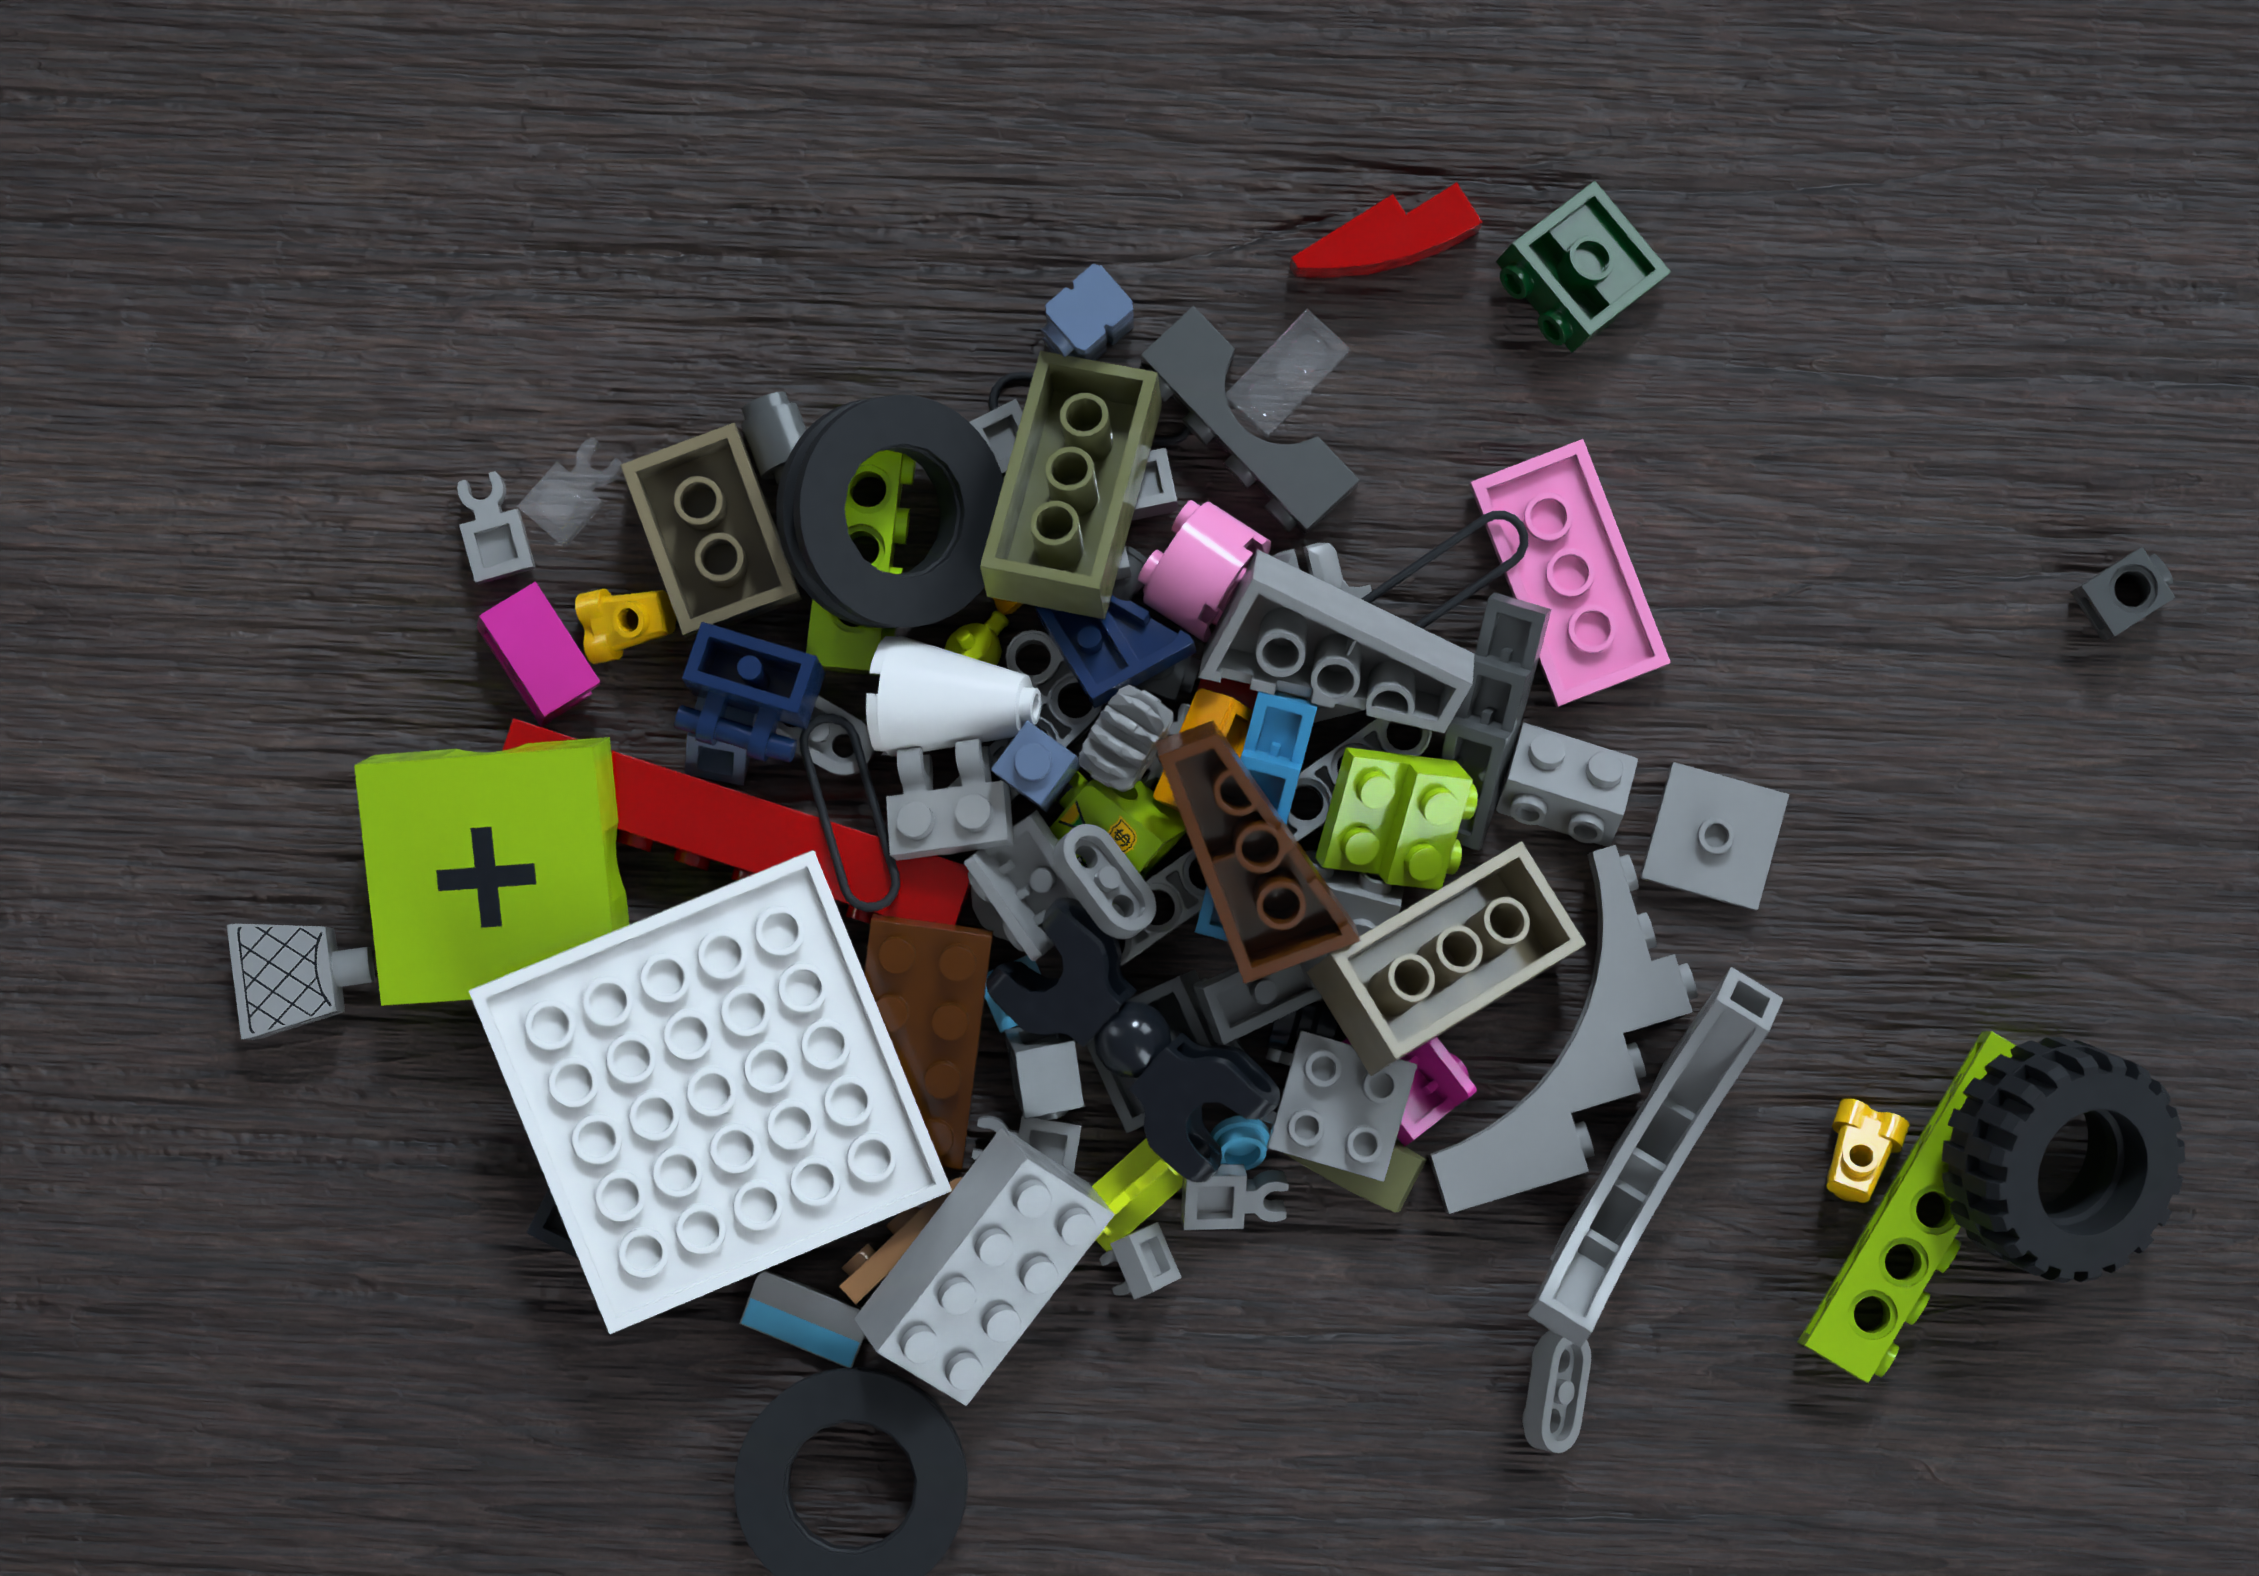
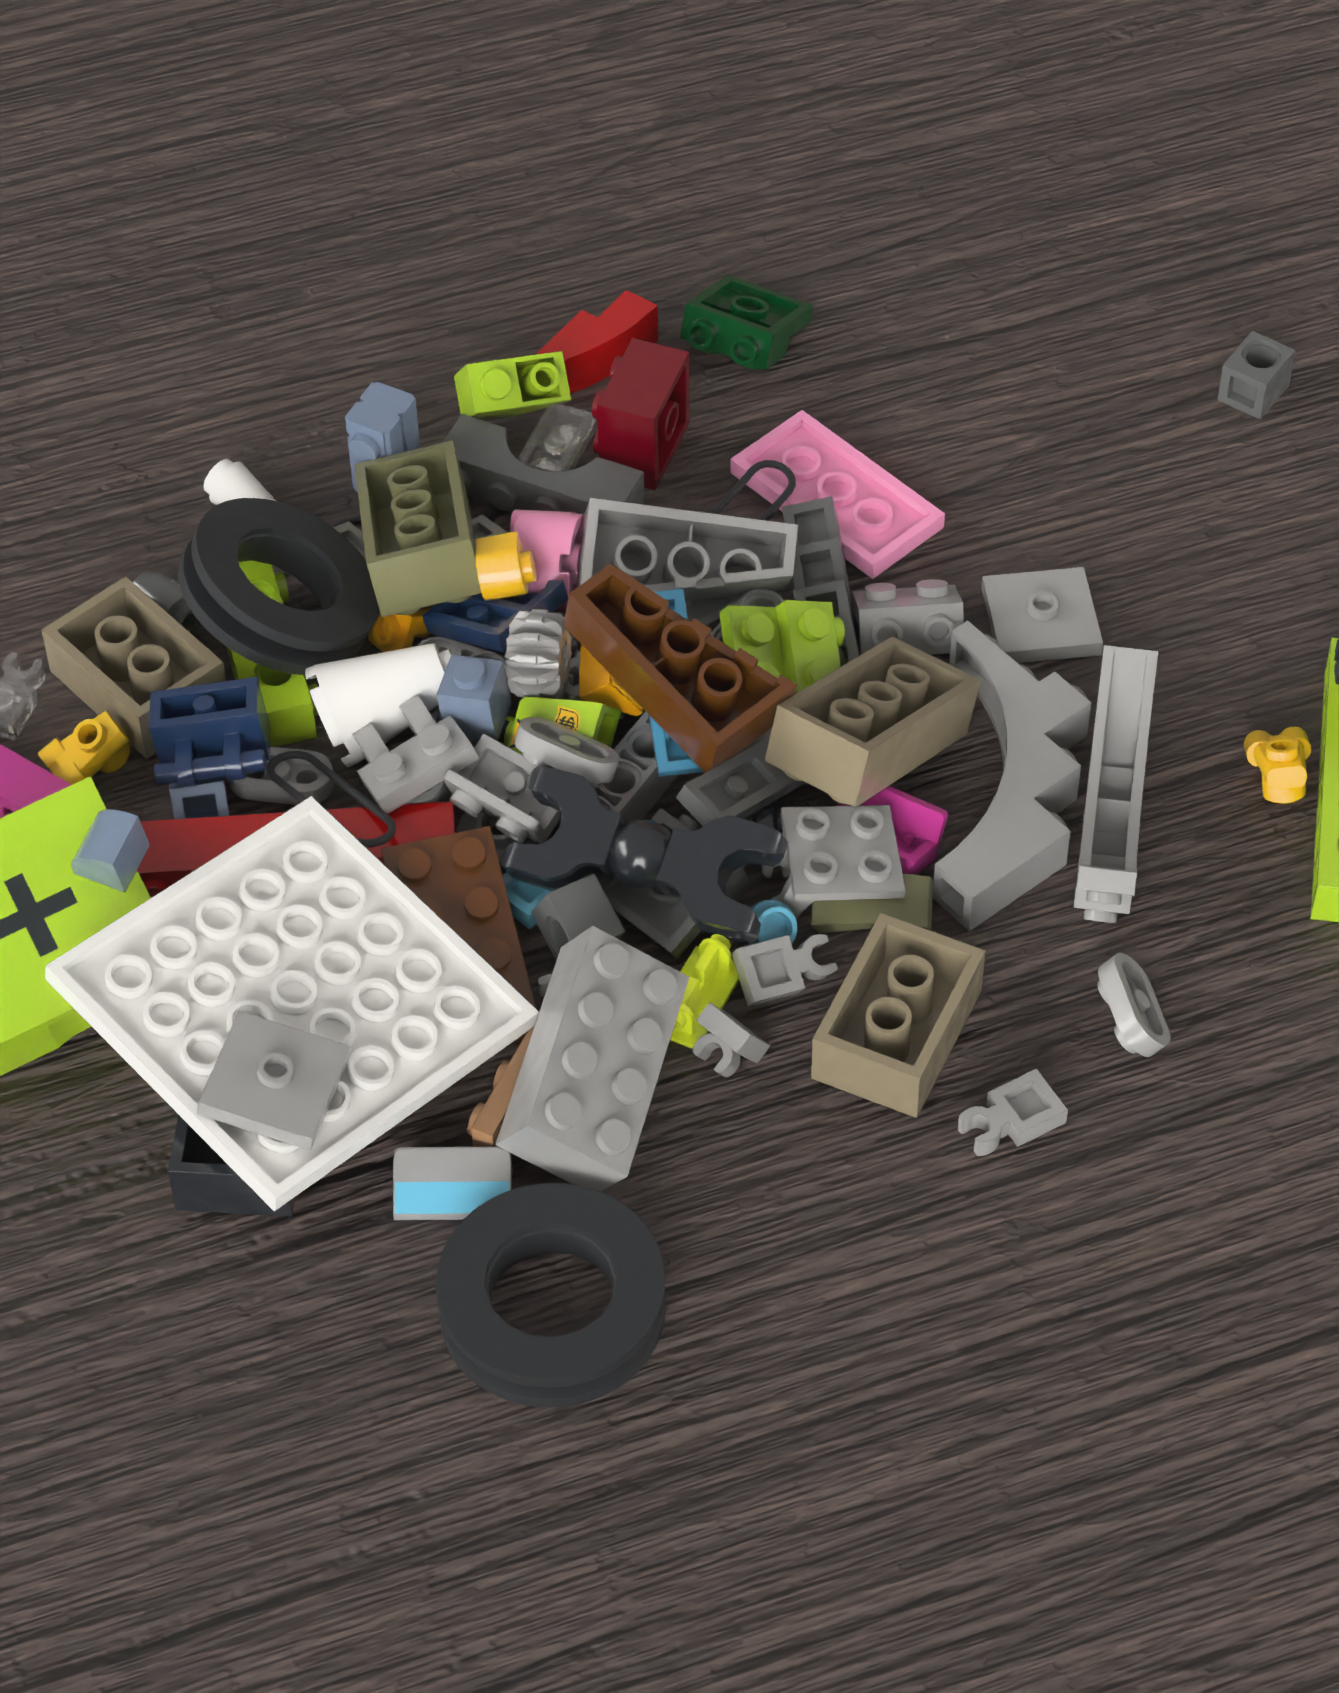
camera: 25 degrees left, 35 degrees down
(579, 858) = (112, 849): none -> sand blue brick
(651, 1206) = (274, 1080): none -> light grey plate
(915, 301) = (233, 481): none -> white cone
(1134, 607) = (503, 566): none -> yellow plate
(1262, 288) = (512, 386): none -> lime slope
(1313, 1318) = (897, 1015): none -> dark tan brick
(1389, 1463) = (1017, 1109): none -> light grey plate
(1395, 389) = (643, 409): none -> dark red brick

